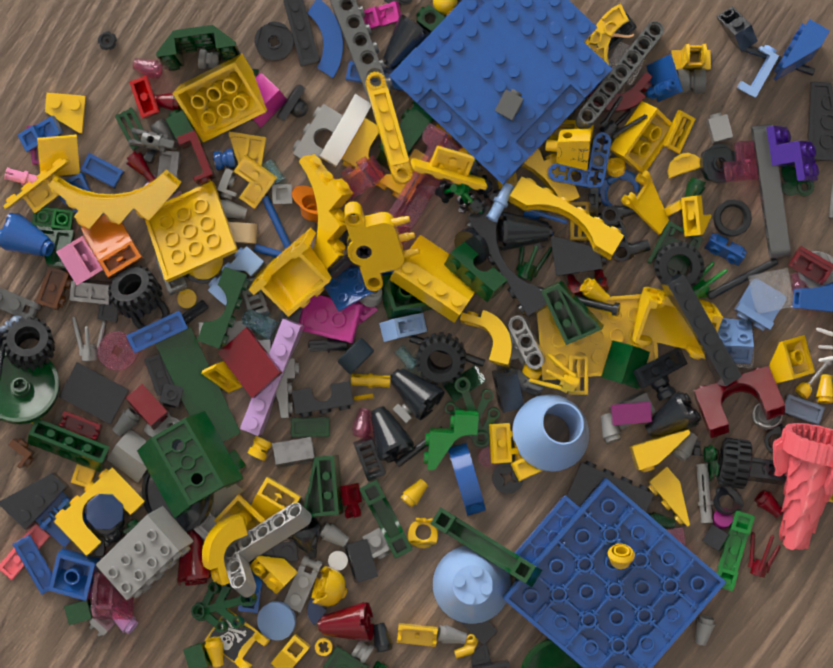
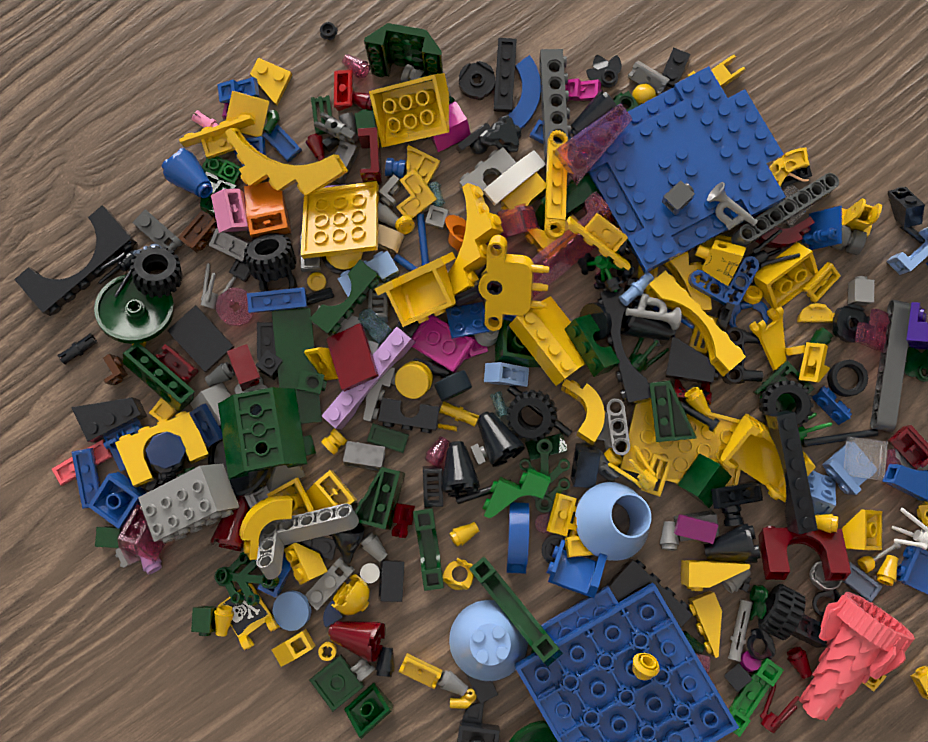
camera: 20 degrees right, 5 degrees down
(85, 151) = (272, 121): none -> dark green arm
(133, 474) = (206, 424): none -> dark blue plate
(210, 399) = (305, 375): none -> dark green brick
(253, 213) = (404, 225): none -> yellow tile
(315, 362) = (413, 379): none -> yellow head
(318, 91) = (502, 134): none -> black rock
(377, 543) = (412, 570): light grey bracket -> none
(408, 82) = (590, 144): none -> clear pink wedge
(530, 494) = (576, 572): none -> blue panel
(542, 220) = (672, 318): none -> light grey piece
(547, 90) = (718, 194): none -> light grey piece
(750, 365) = (827, 522): none -> yellow cone

